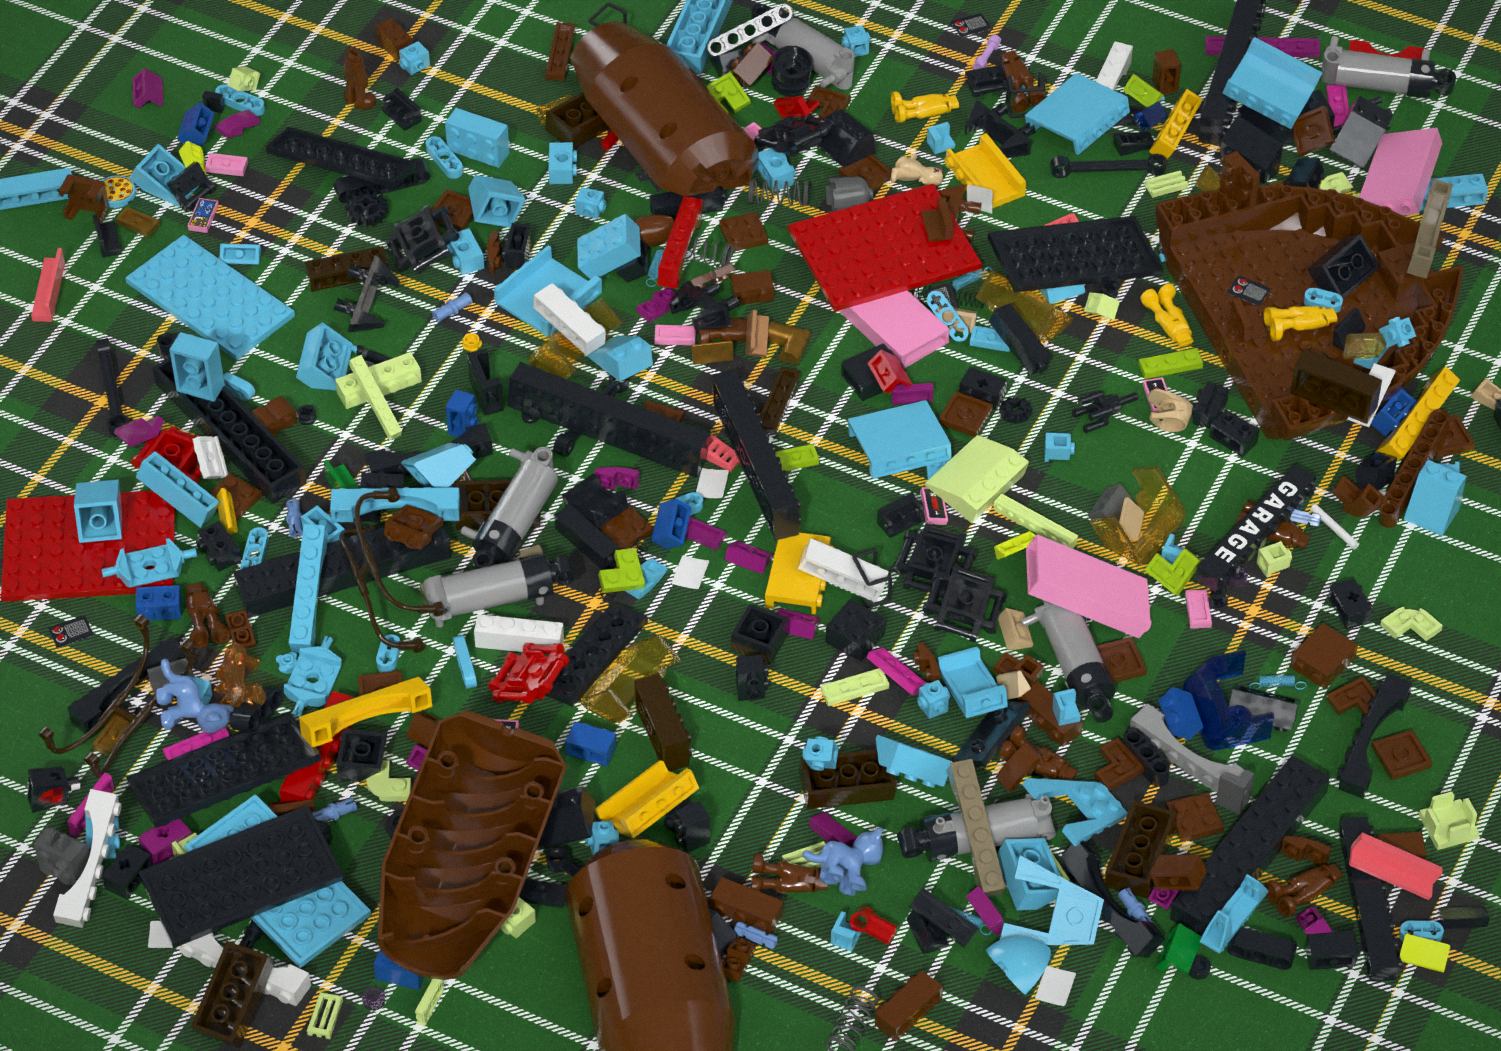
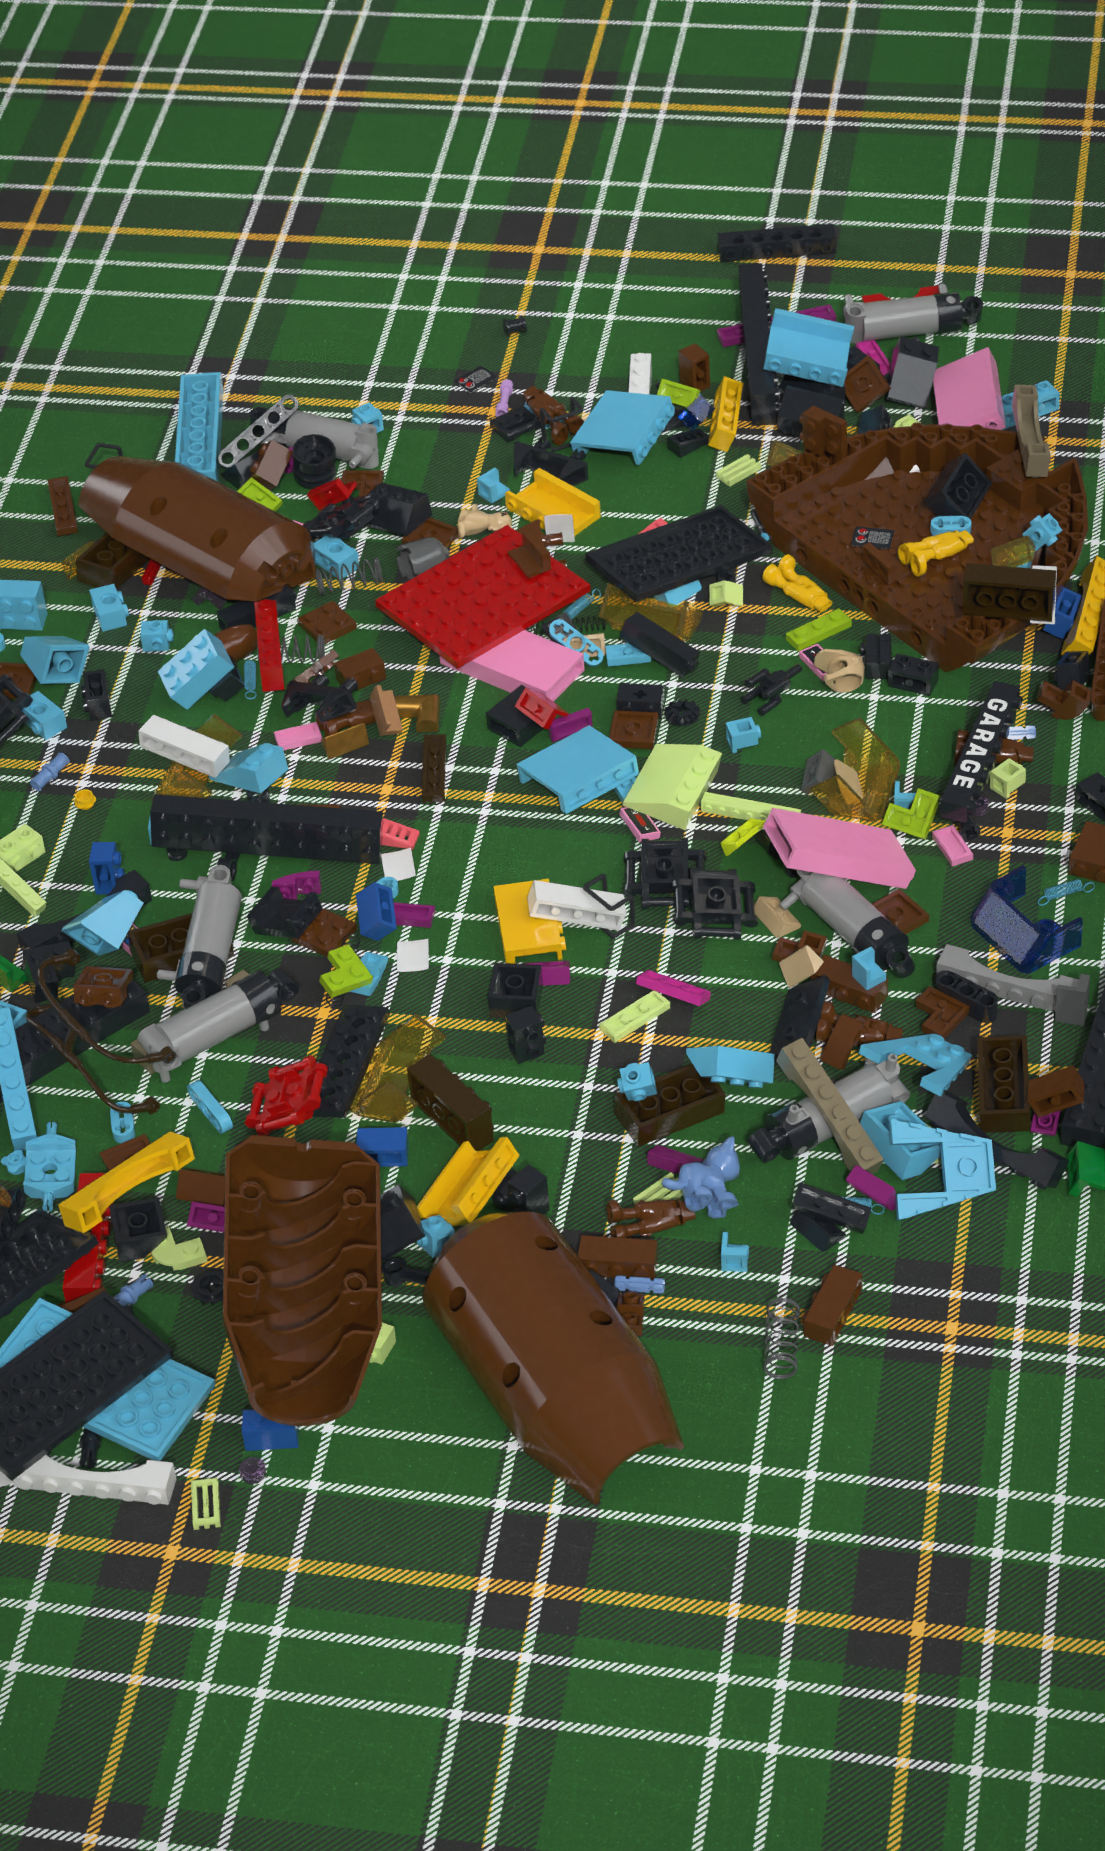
camera: 15 degrees left, 5 degrees down
(233, 994) = (98, 1508): dark brown brick -> none
(429, 1001) = (316, 1453): yellowish green tile -> none
(437, 501) = (23, 984): medium azure arch -> none
(487, 392) = (109, 829): black panel -> none
(493, 252) = (73, 710): reddish brown slope -> none
(513, 633) = (252, 1063): white brick -> none
(518, 290) = (119, 733): medium azure panel -> none
(543, 893) = (400, 1309): black plate -> none
(586, 537) = (289, 950): black brick -> none
(657, 306) = (268, 713): magenta slope -> none
(748, 556) = (468, 924): magenta slope -> none
(756, 455) = (438, 821): black brick -> none
(798, 457) = (477, 817): lime plate -> none
(855, 630) = (613, 960): black brick -> none
(875, 926) = (764, 1237): red piece -> none
(900, 515) = (609, 841): black hinge -> none
(922, 106) = (459, 462): yellow piece -> none
(926, 663) = (703, 971): reddish brown slope -> none
(933, 699) = (724, 1003): medium azure brick -> none
(971, 683) = (756, 976): medium azure panel -> none
(1021, 959) = (931, 1224): medium azure brick -> none
(1055, 986) = (974, 1242): white sticker -> none
(1114, 165) = (719, 456): black piece -> none
(1134, 908) = (1022, 1142): medium blue pin -> none
(1180, 713) = (983, 944): blue brick -> none
(1195, 817) = (1044, 1039): reddish brown plate -> none
(1263, 703) = (1066, 912): black slope -> none
(1335, 527) = (1047, 731): white bar -> none
(1350, 325) = (989, 540): black slope -> none

